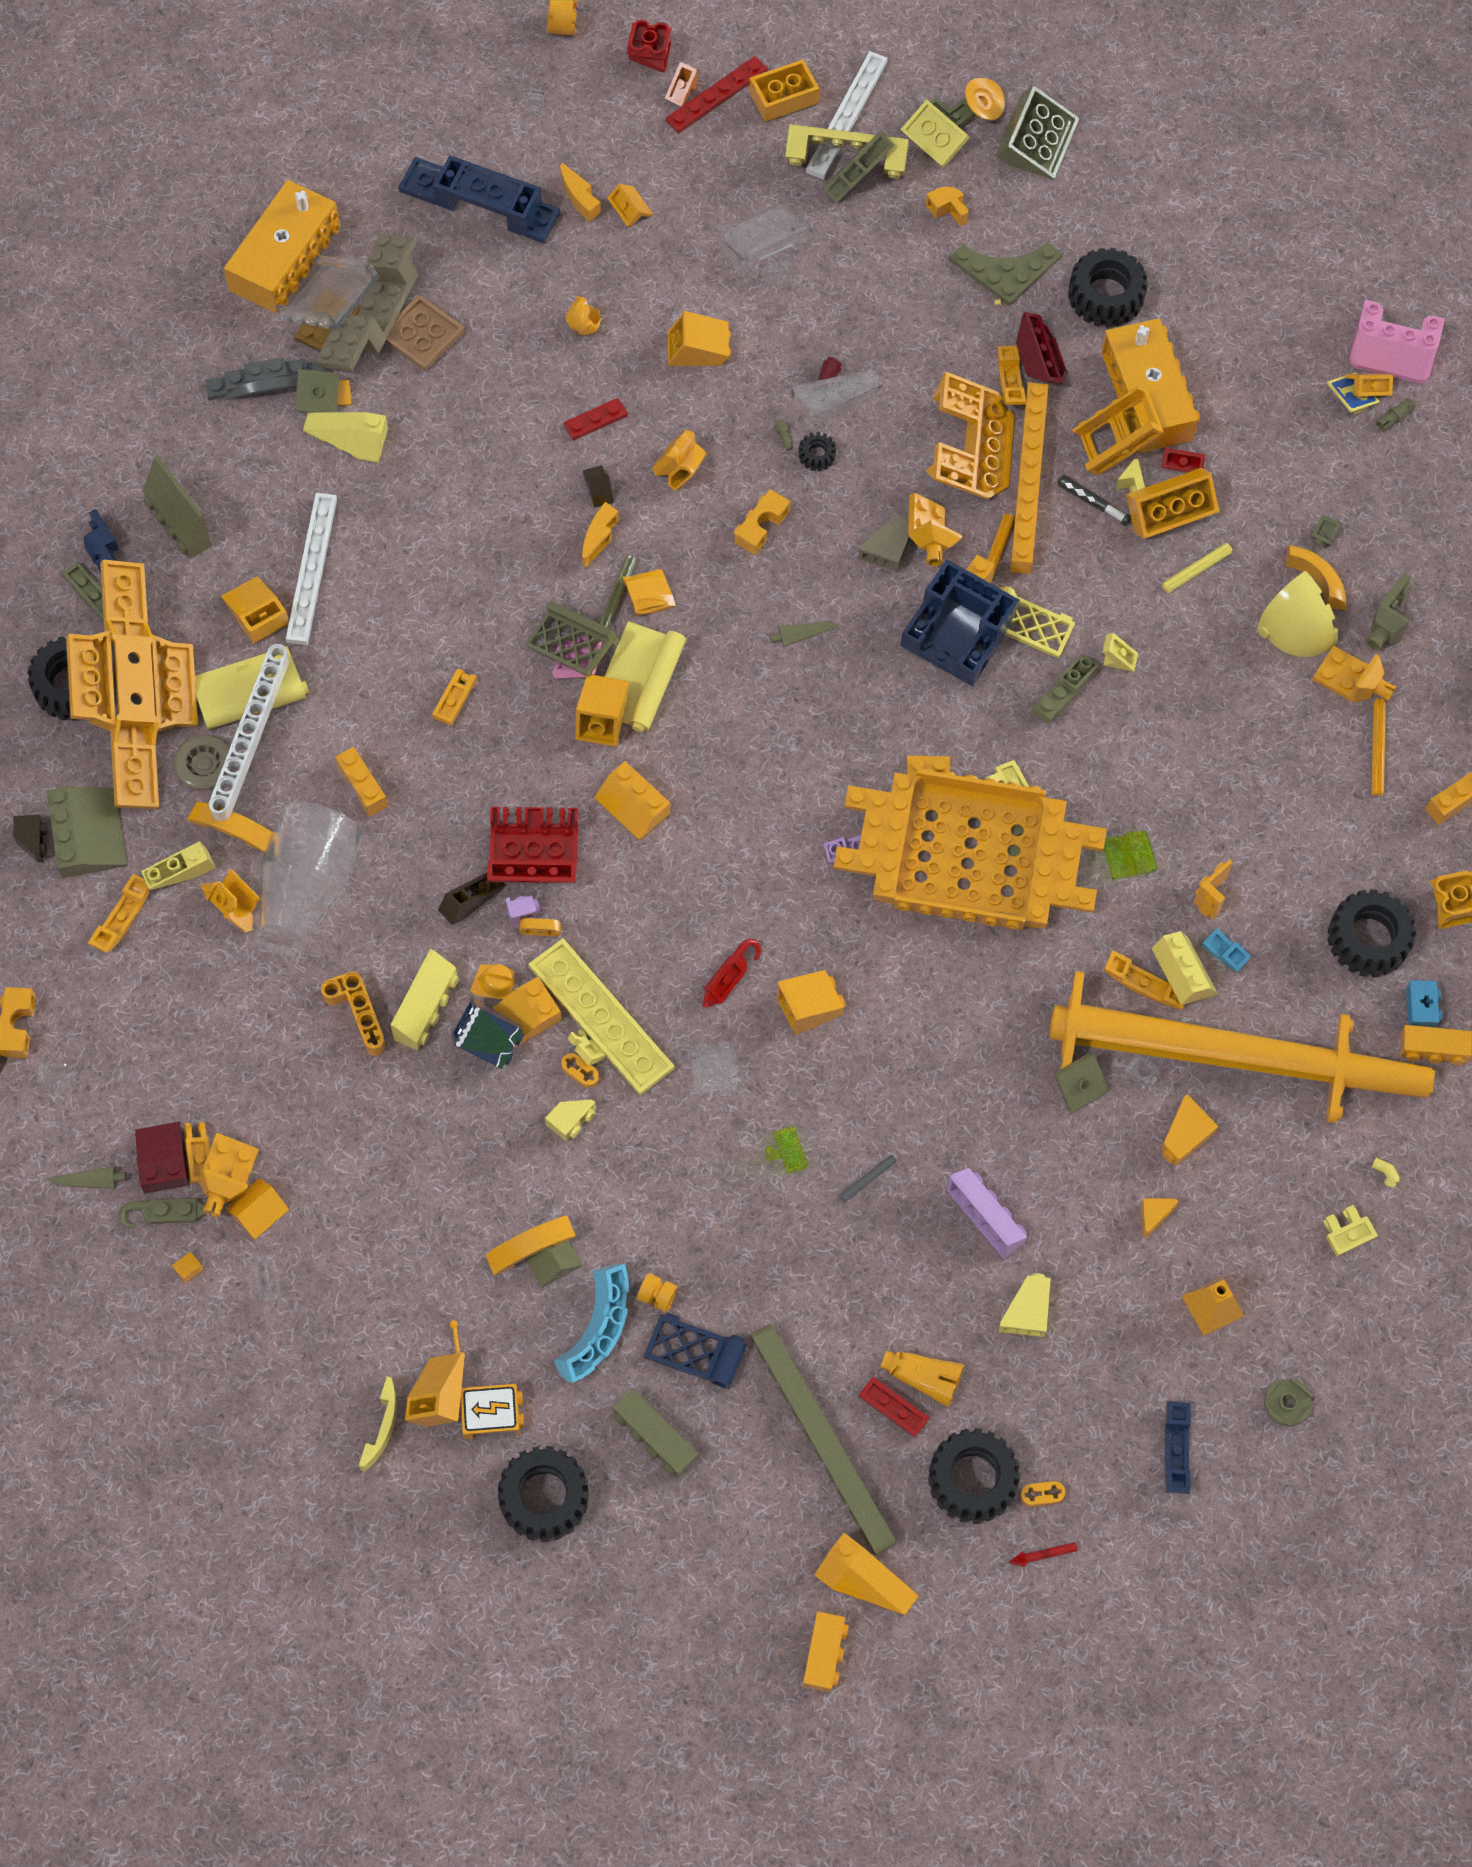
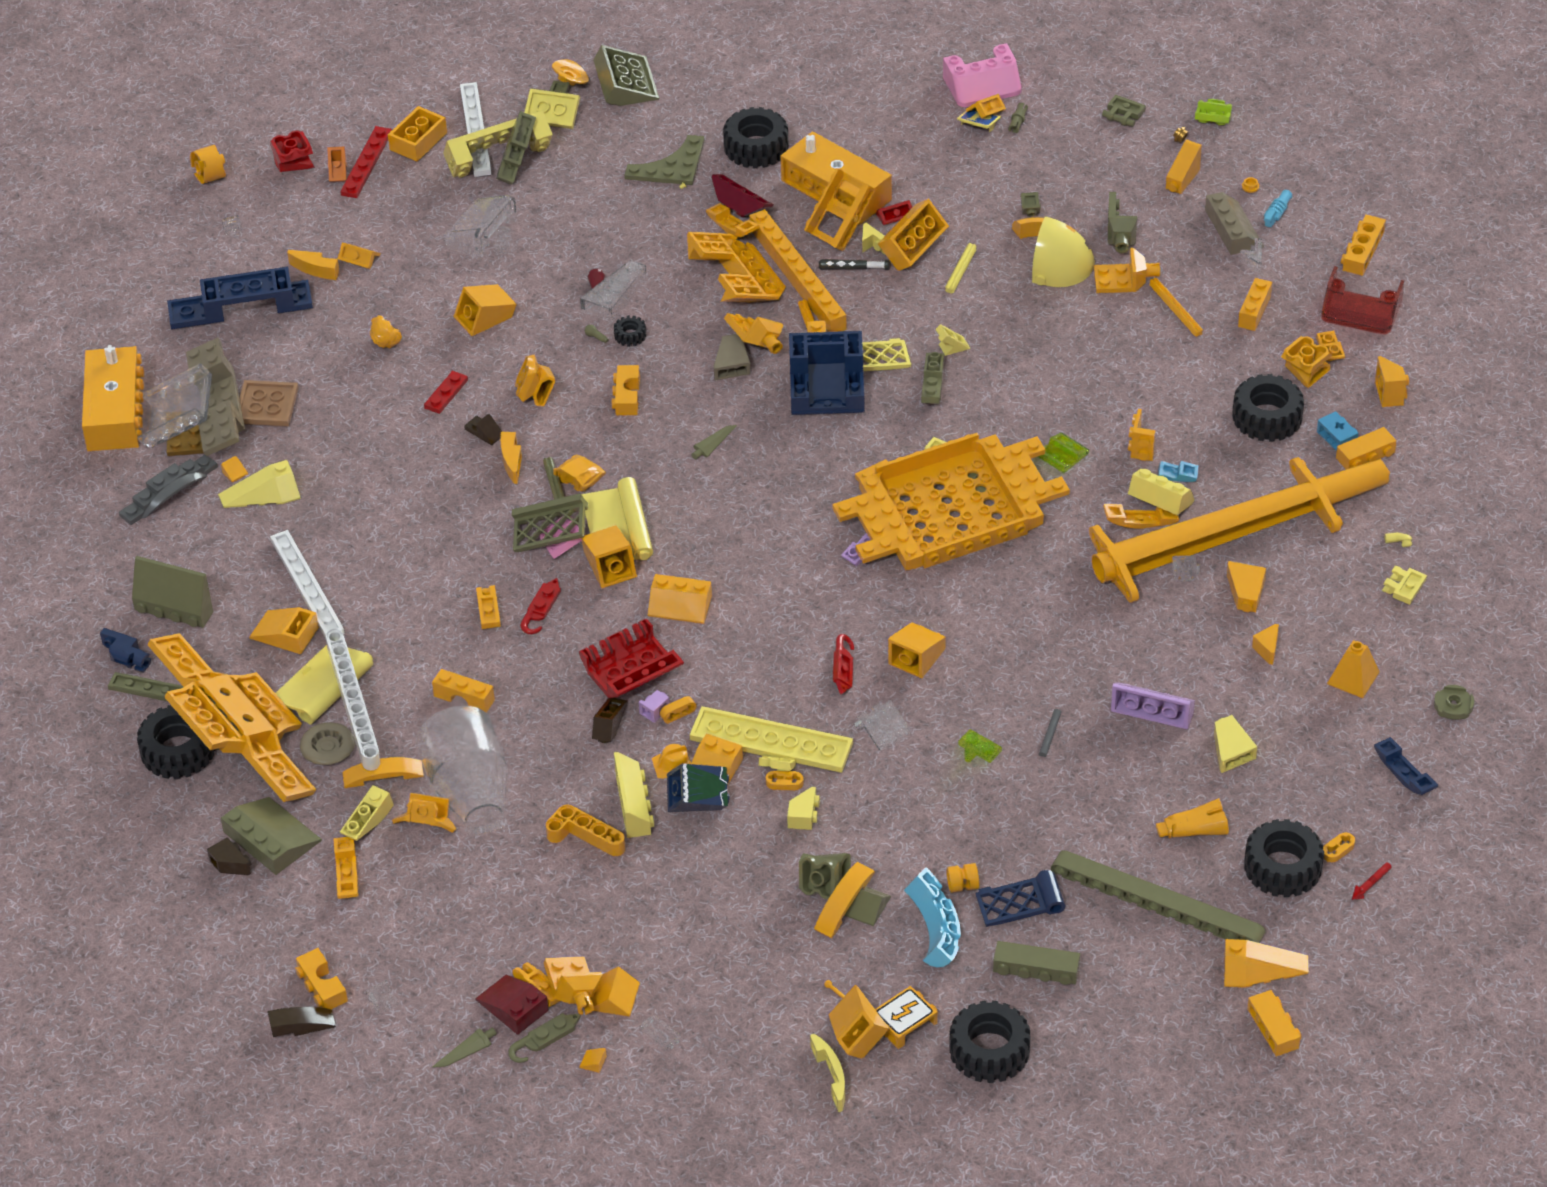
camera: 30 degrees left, 20 degrees down
(317, 391) = (216, 473): olive plate -> none
(505, 724) = (541, 605): none -> red plate
(530, 1203) = (822, 872): none -> olive piece
(893, 1407) = (1191, 854): red plate -> none
(947, 200) = (597, 142): light orange brick -> none
(1081, 1082) = (1149, 593): olive plate -> none

